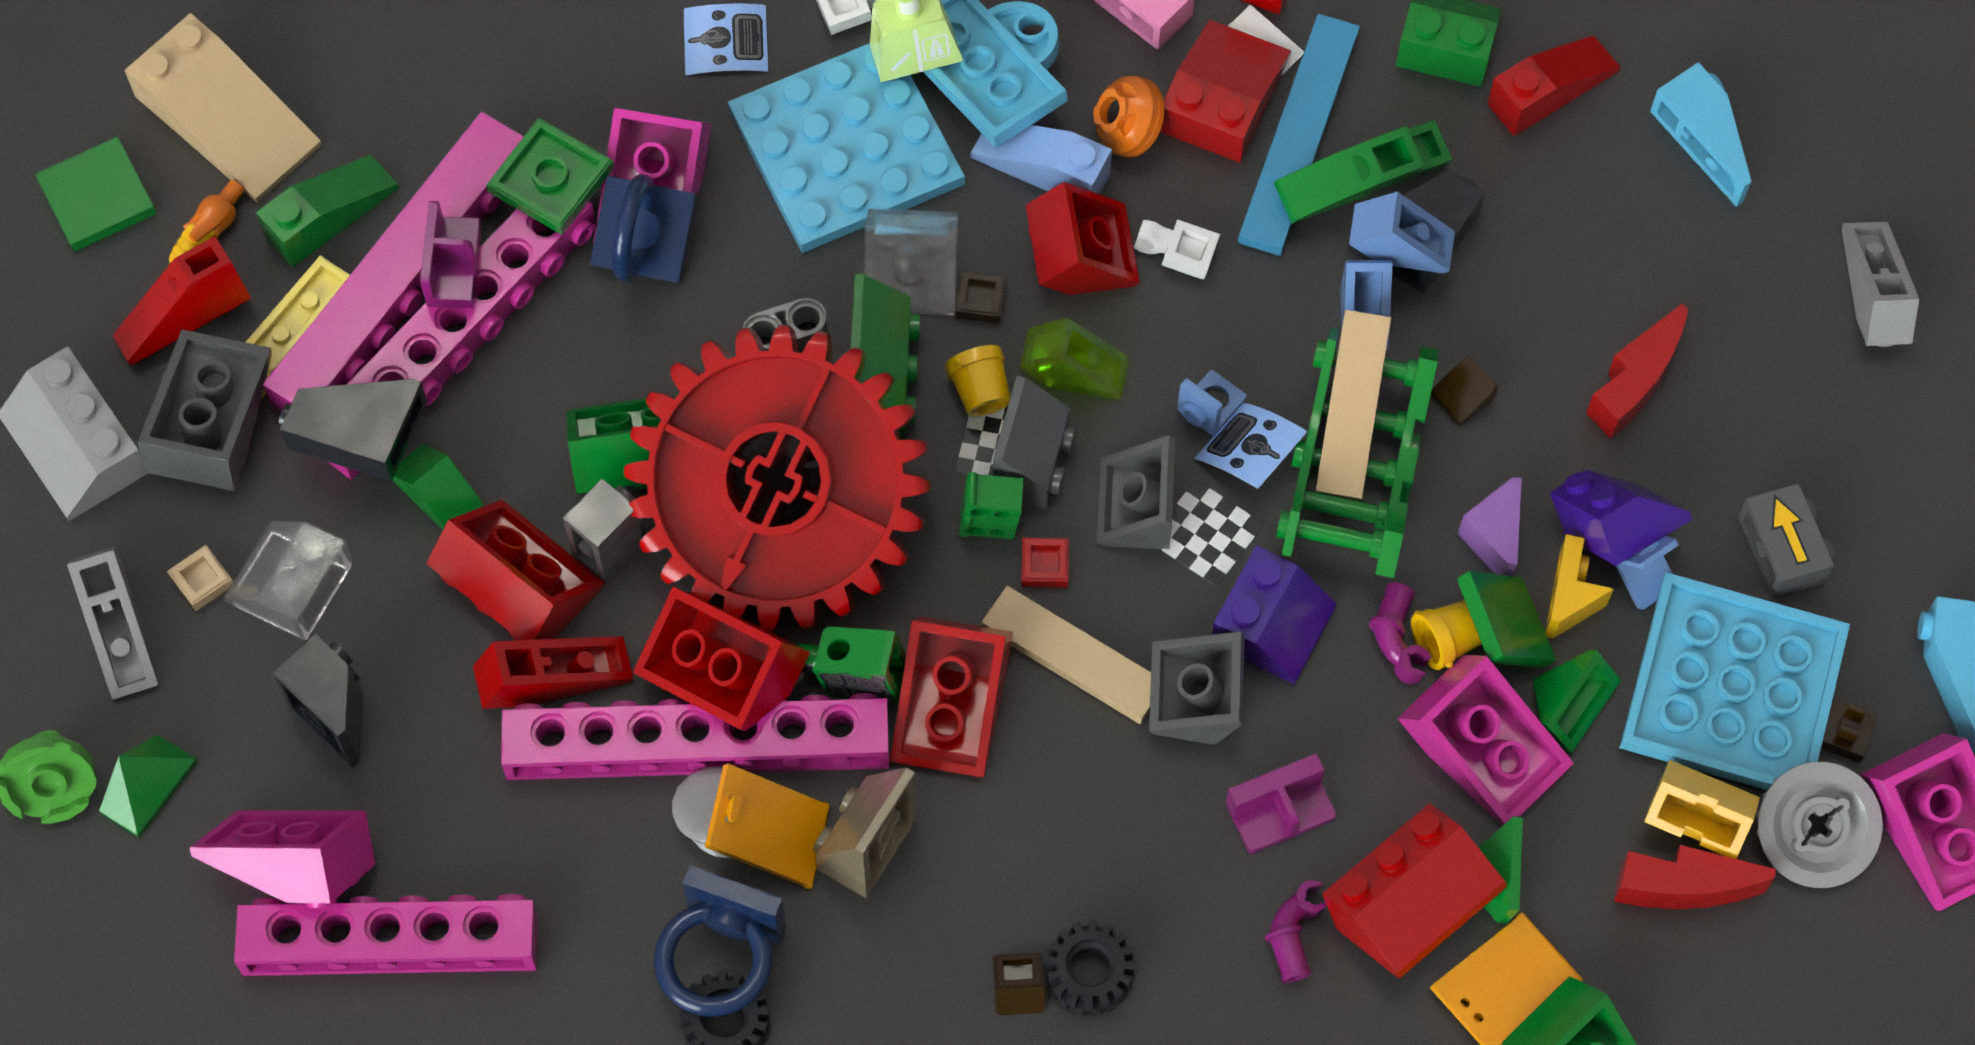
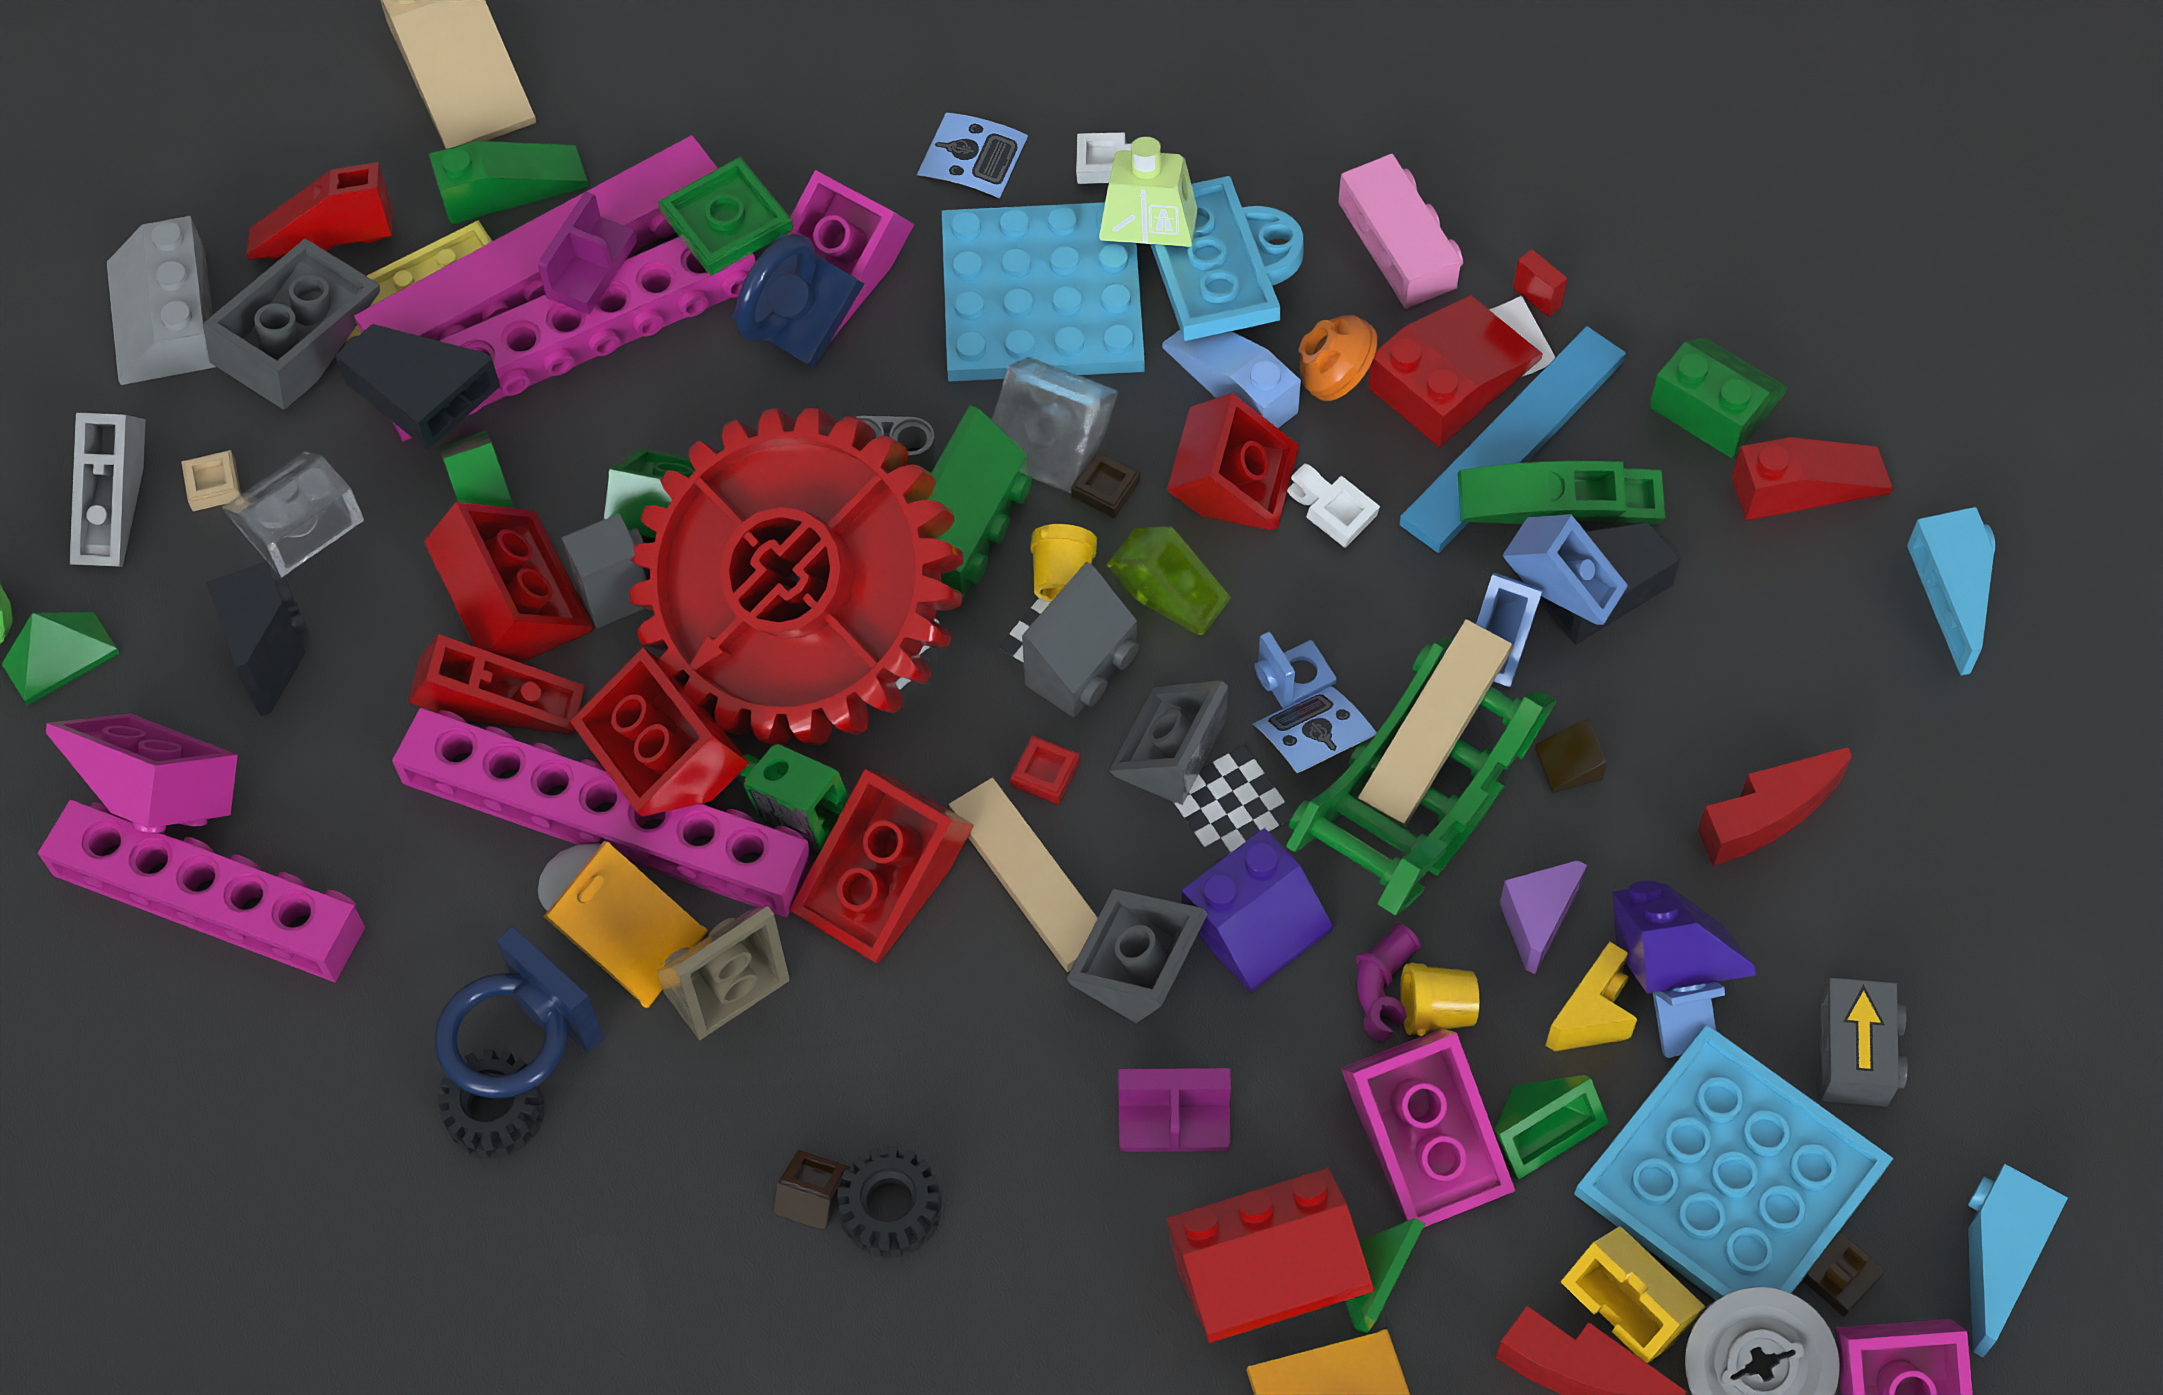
camera: 25 degrees right, 5 degrees down
(95, 194) = (301, 94): green tile -> none
(210, 220) = (397, 149): orange piece -> none
(990, 506) = (1008, 689): green piece -> none
(1285, 932) = (1115, 1246): magenta piece -> none
(1506, 619) = (1504, 1007): green tile -> none
(1880, 284) = (2085, 810): light grey slope -> none

